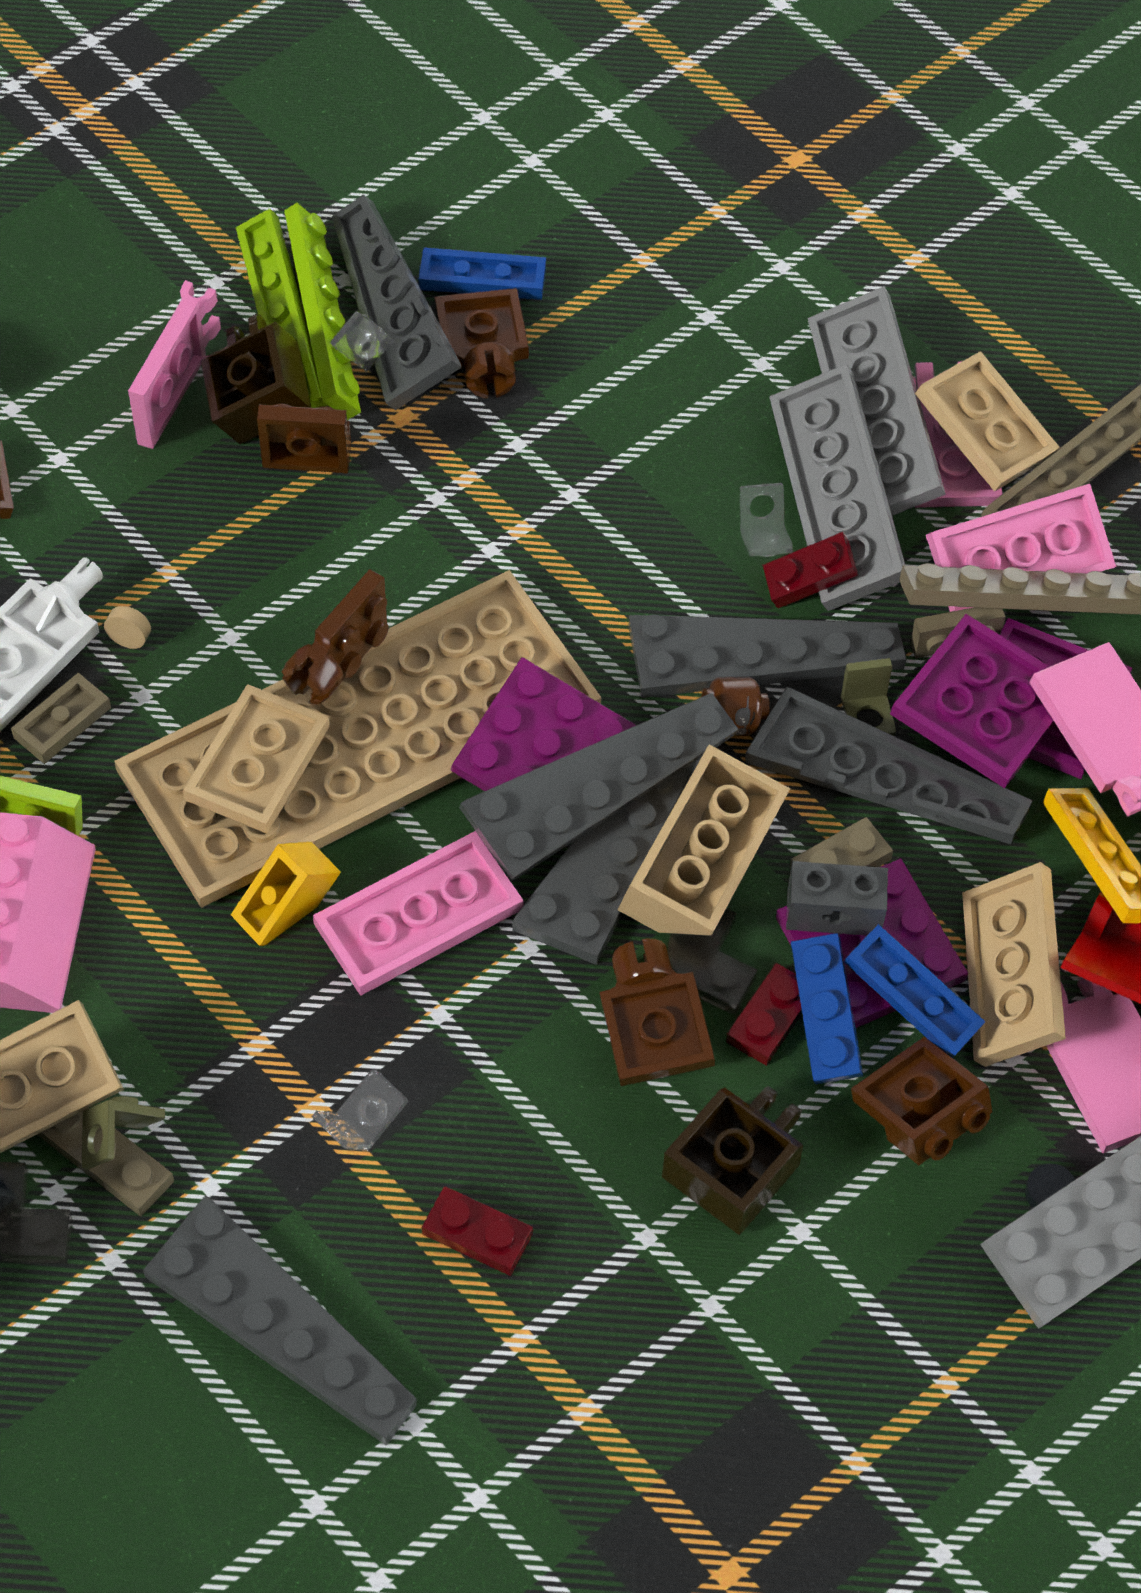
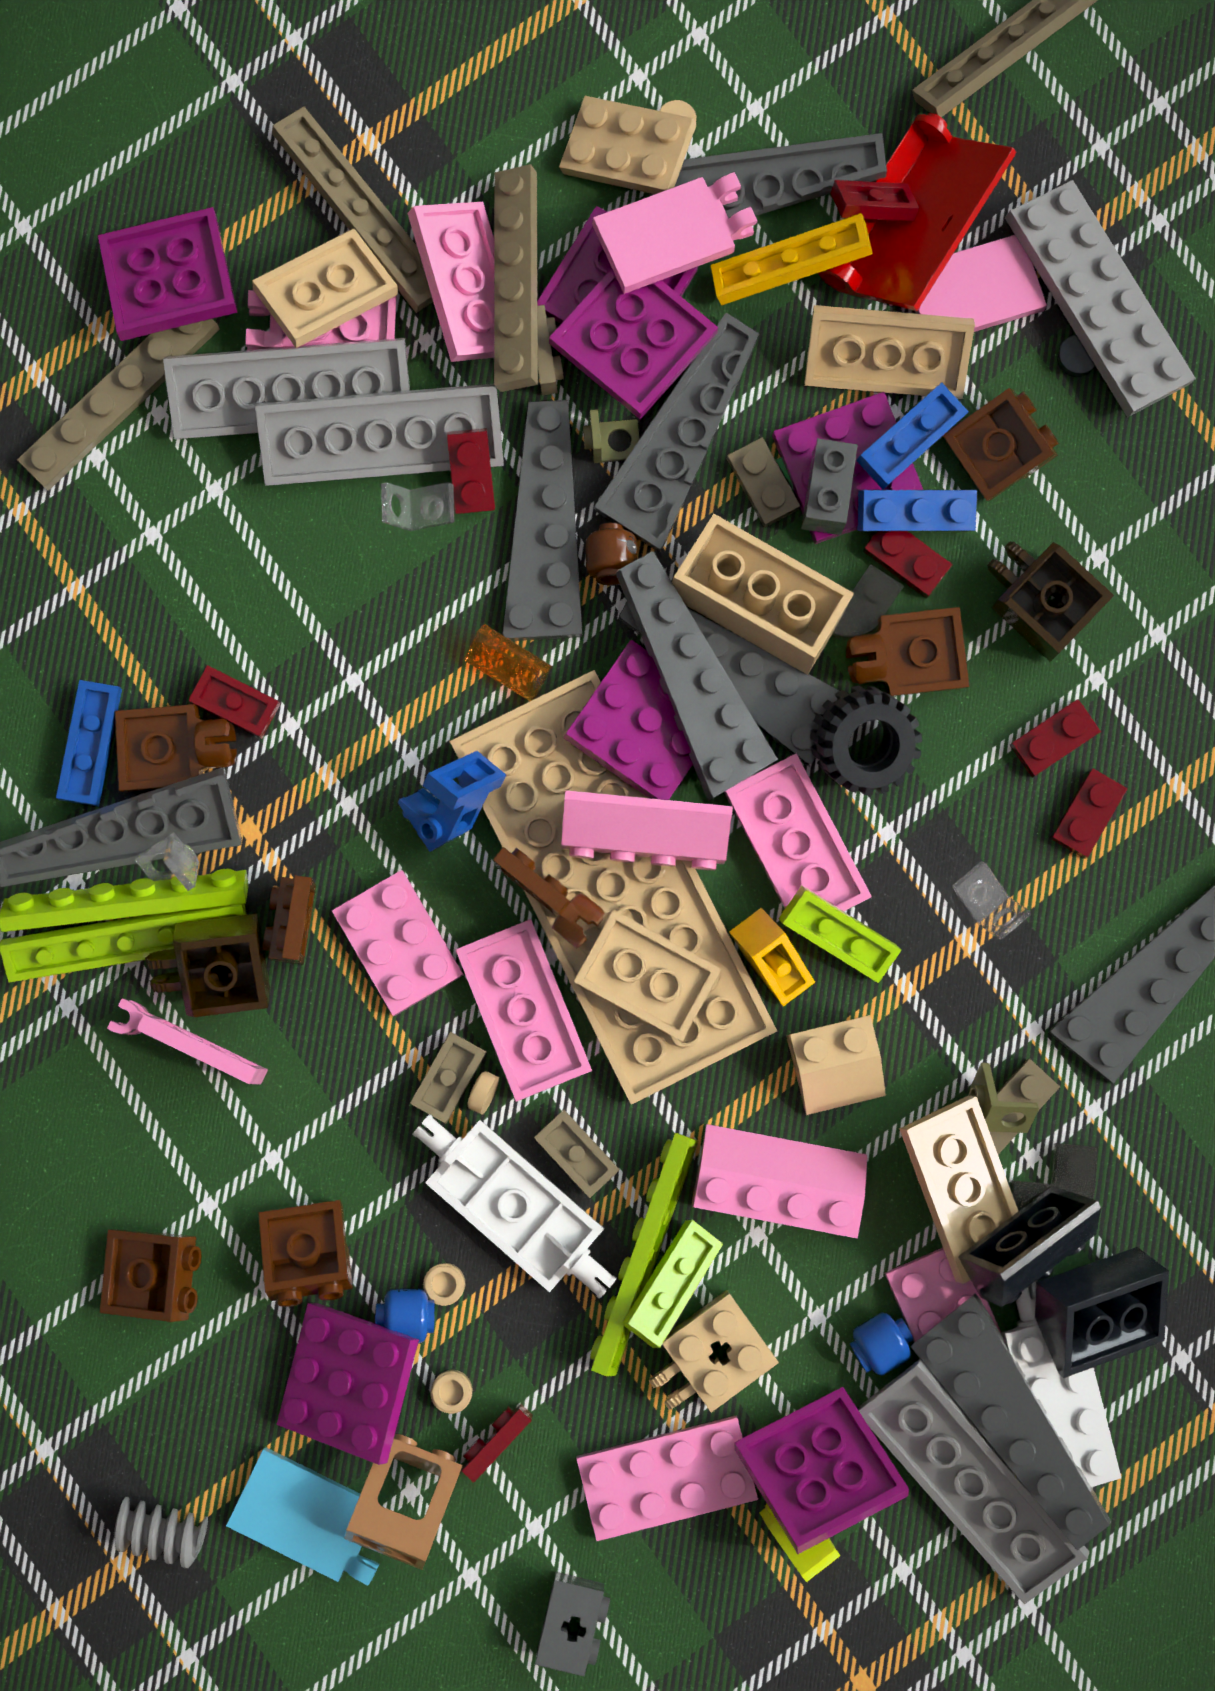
camera: 85 degrees left, 25 degrees up
(156, 598) = (448, 1077): none -> dark tan plate
(163, 964) = (837, 1064): none -> tan slope
(213, 659) = (523, 1010): none -> bright pink plate
(289, 547) = (397, 943): none -> bright pink plate
(312, 950) = (839, 934): none -> lime plate
(419, 738) = (645, 829): none -> bright pink slope
(430, 567) = (459, 803): none -> blue tile
(514, 937) = (891, 757): none -> black tyre
(535, 387) = (234, 702): none -> dark red plate
(568, 1187) = (1055, 738): none -> dark red plate
(601, 619) = (507, 663): none -> clear orange plate
(848, 273) = (111, 402): none -> dark tan plate
(979, 295) = (167, 274): none -> magenta plate

